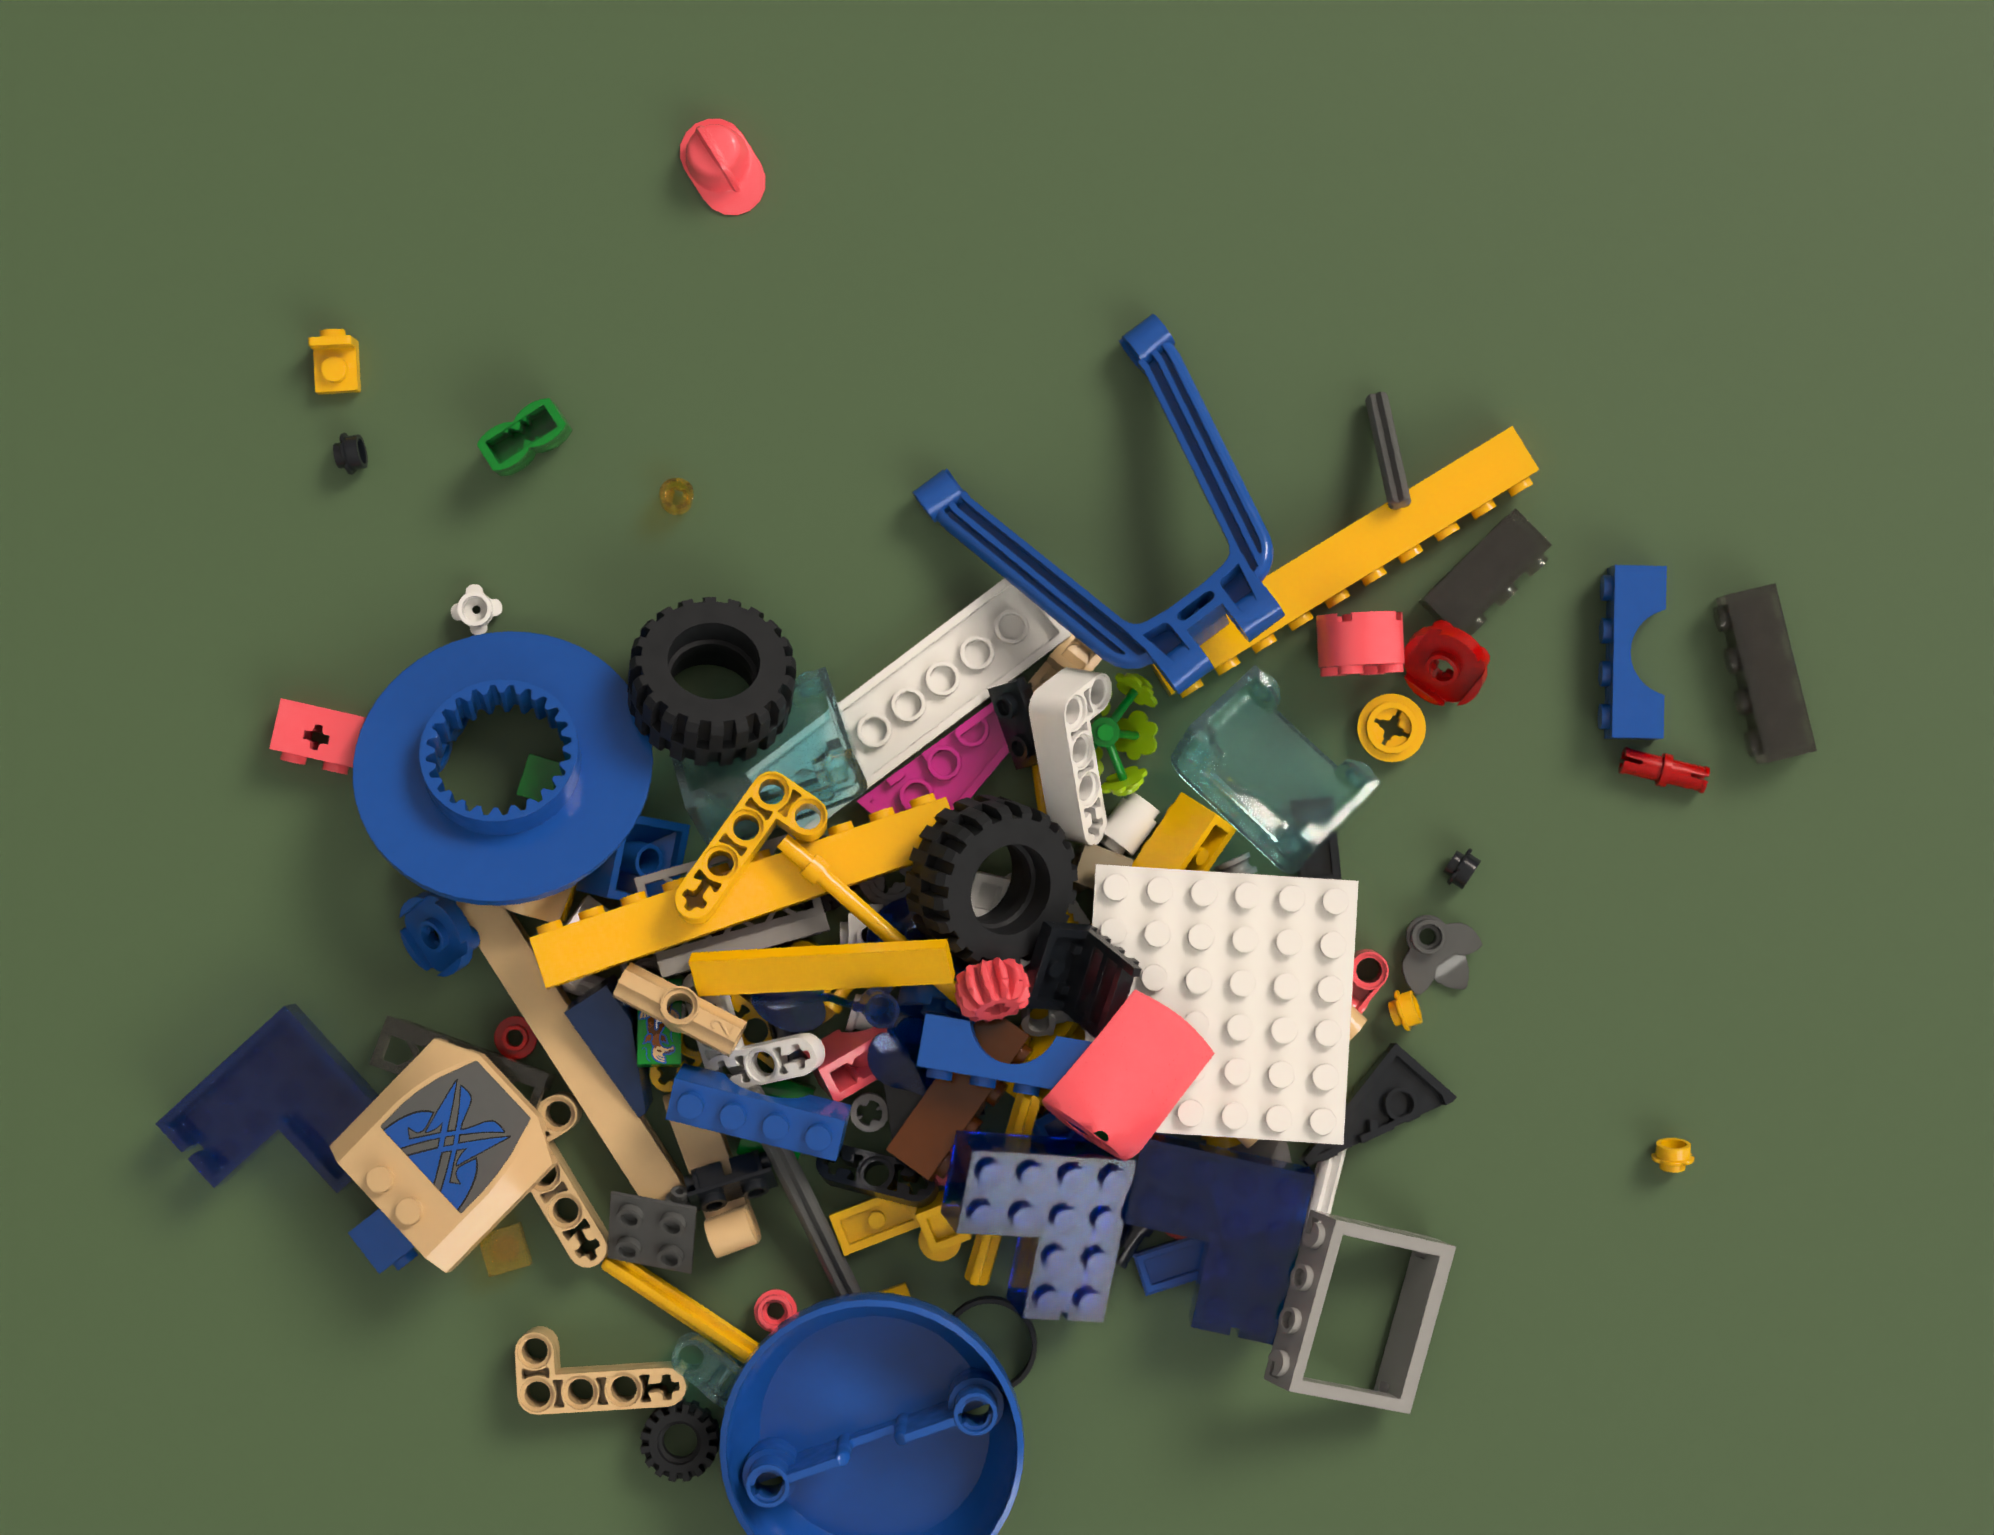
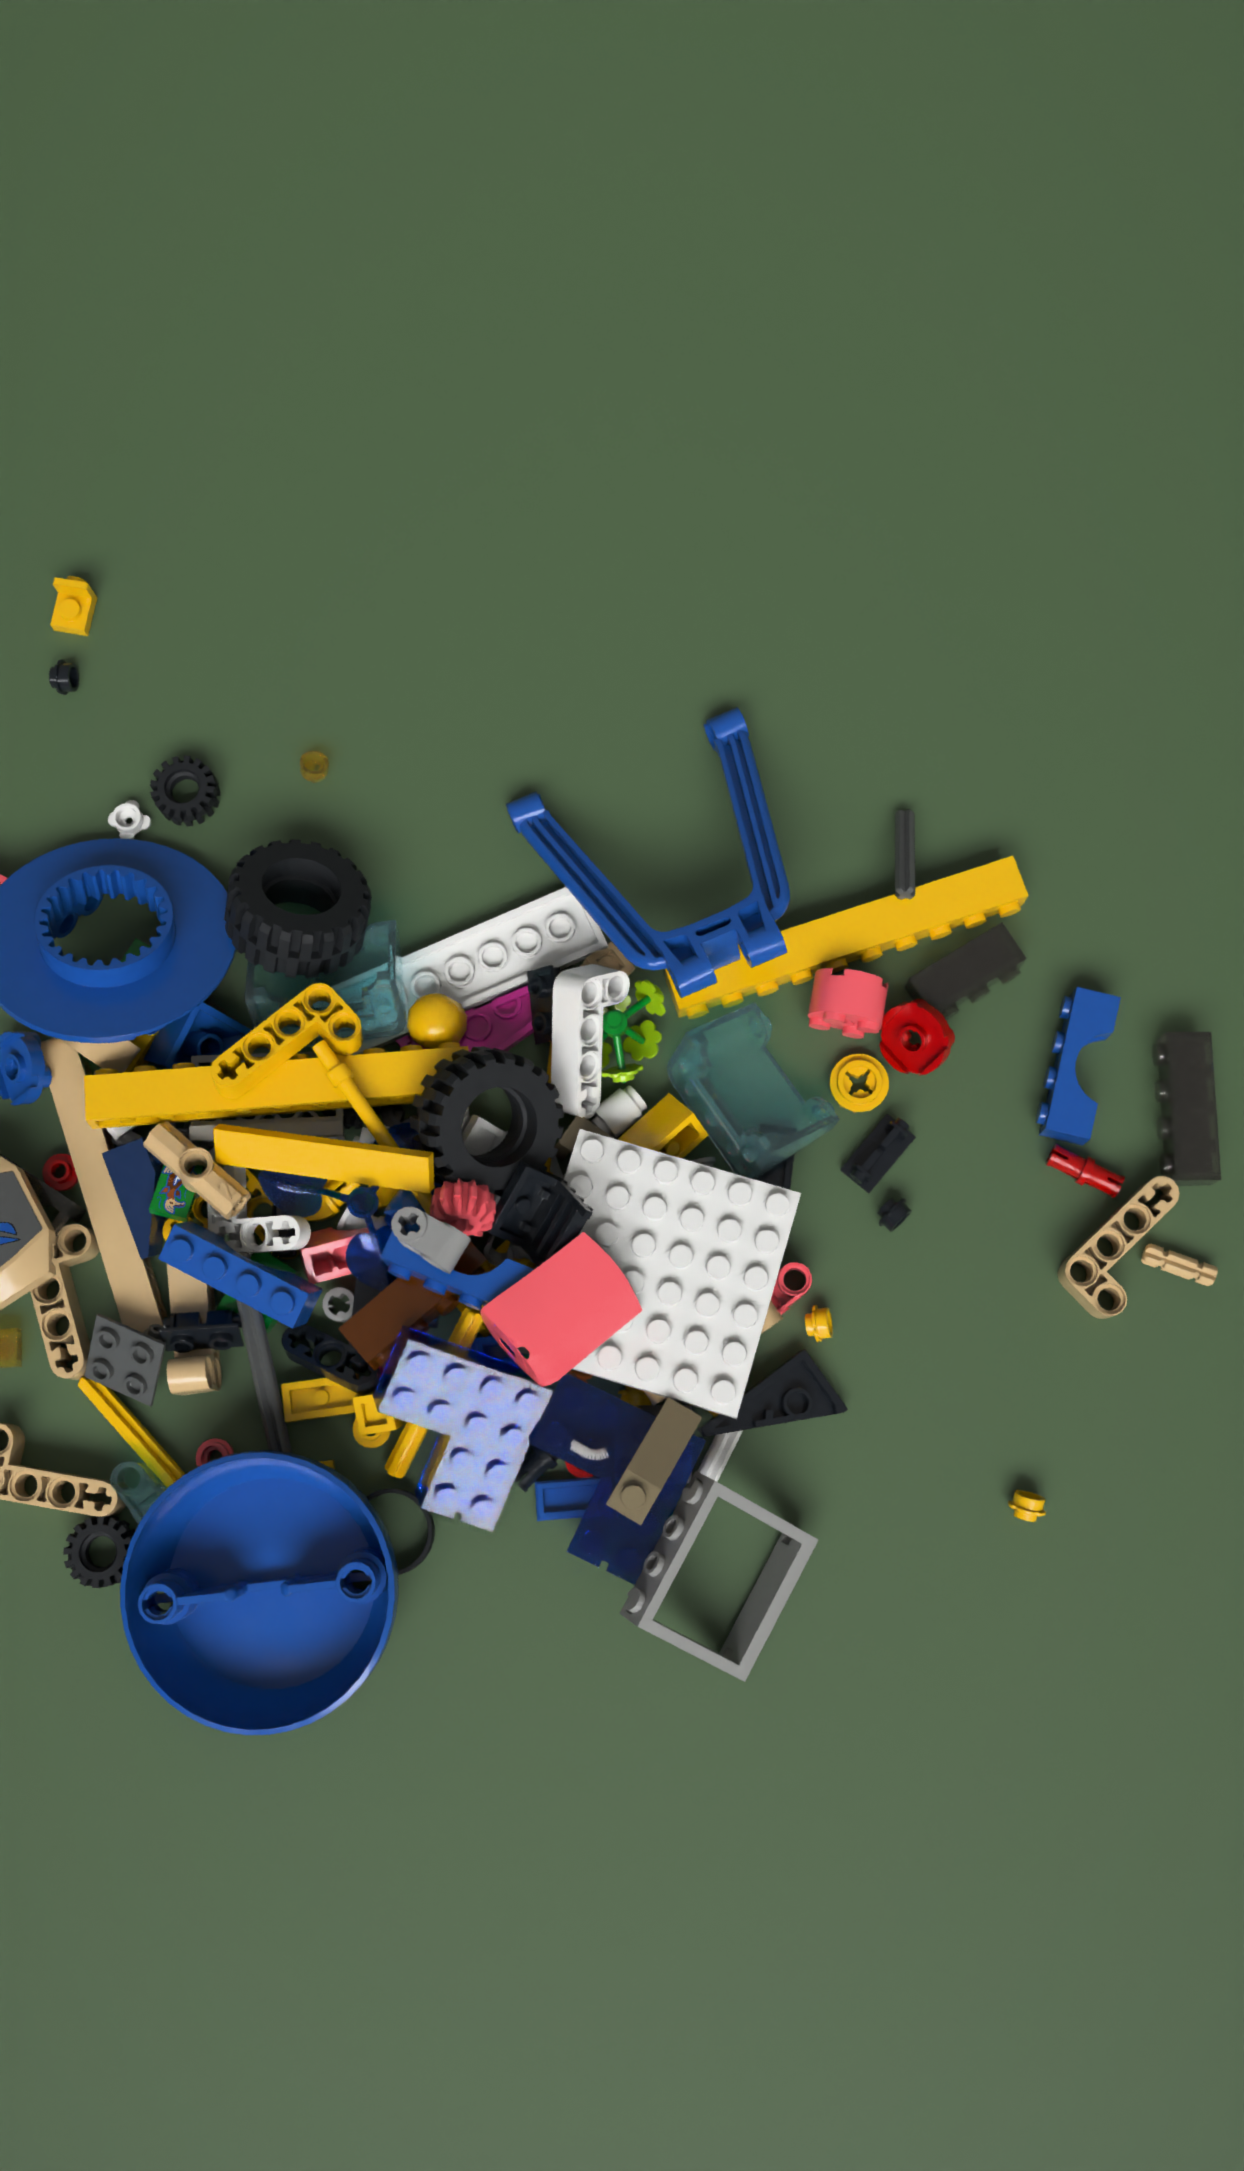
camera: 15 degrees right, 10 degrees down
(510, 547) = (172, 775): none -> black tyre
(514, 444) = (200, 692): green brick -> none
(722, 166) = (420, 527): coral piece -> none
(899, 770) = (436, 1020): none -> yellow hair
(977, 1037) = (434, 1242): none -> light grey piece
(1200, 1218) = (582, 1450): none -> white leg
(1265, 1214) = (654, 1461): none -> dark tan slope
(1429, 803) = (878, 1152): none -> black hinge
(1442, 958) = (859, 1288): dark grey plate -> none
(1721, 841) = (1122, 1241): none -> tan beam
(1788, 851) = (1179, 1264): none -> tan axle

